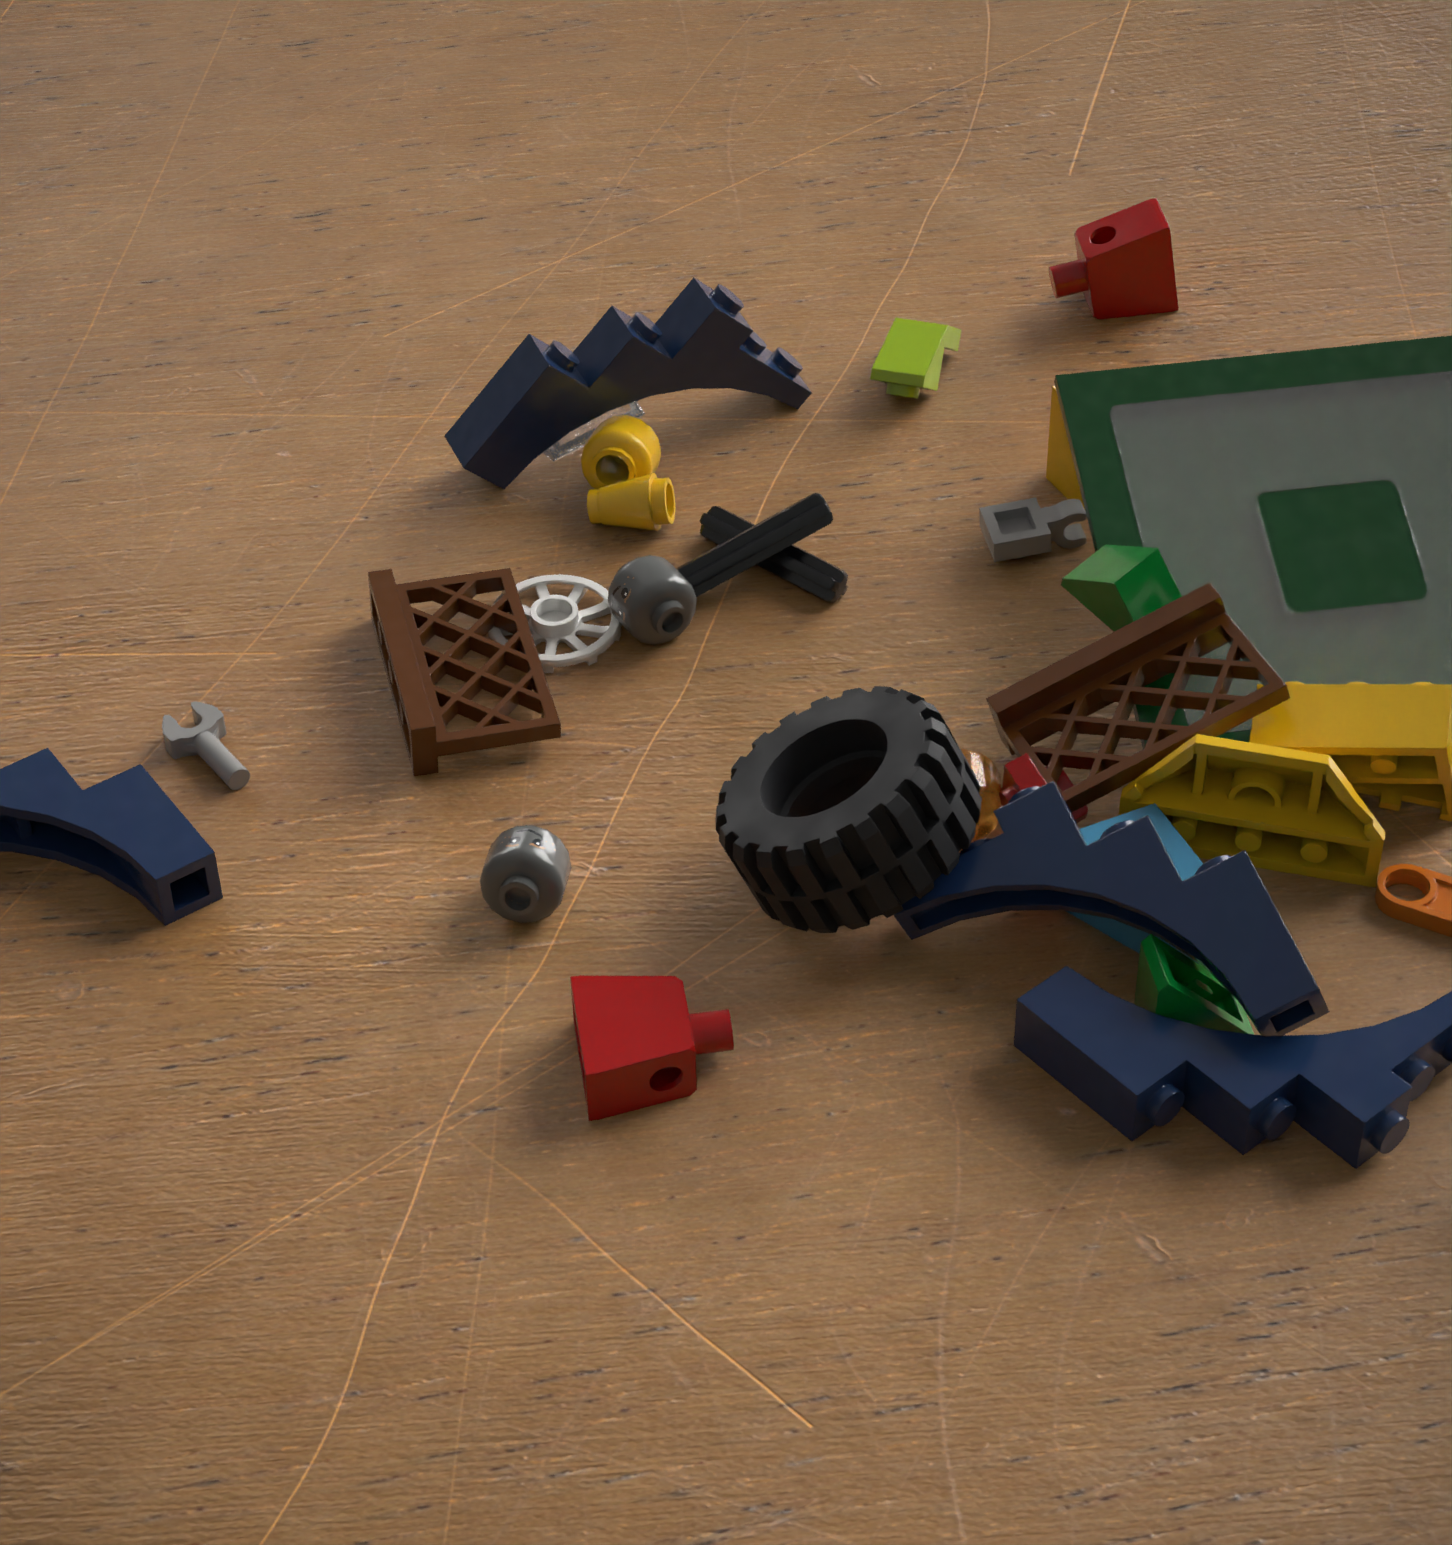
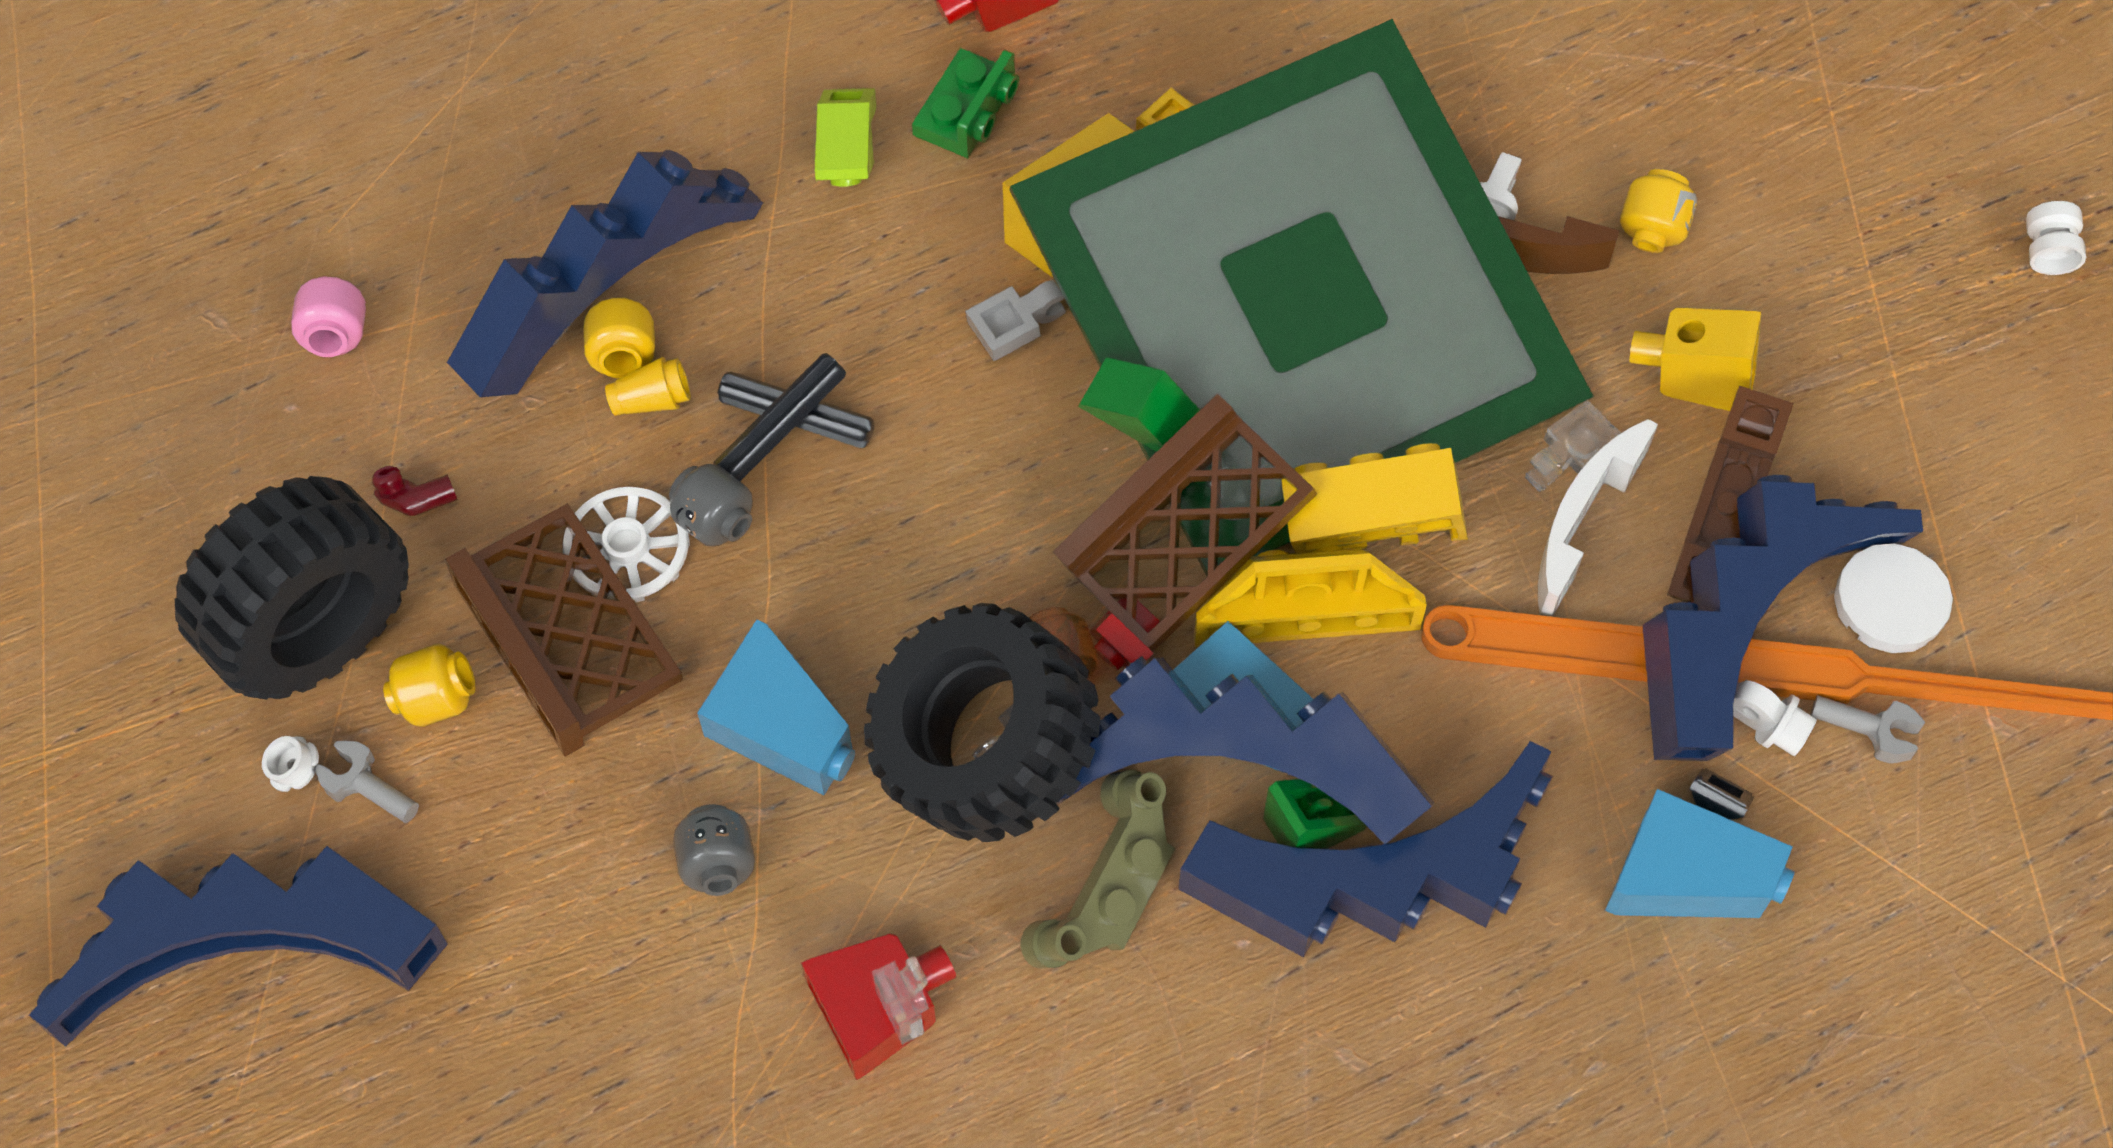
camera: 20 degrees left, 20 degrees up
(141, 707) = (290, 762): none -> white plate
(178, 485) = (291, 587): none -> black tyre
(306, 676) = (429, 685): none -> yellow head
(350, 383) = (328, 316): none -> bright pink head
(362, 539) = (409, 497): none -> dark red arm
(640, 781) = (777, 714): none -> dark azure slope
(660, 1010) = (902, 997): none -> clear plate
(943, 1012) = (1119, 880): none -> olive plate
(1056, 349) = (966, 101): none -> green bracket

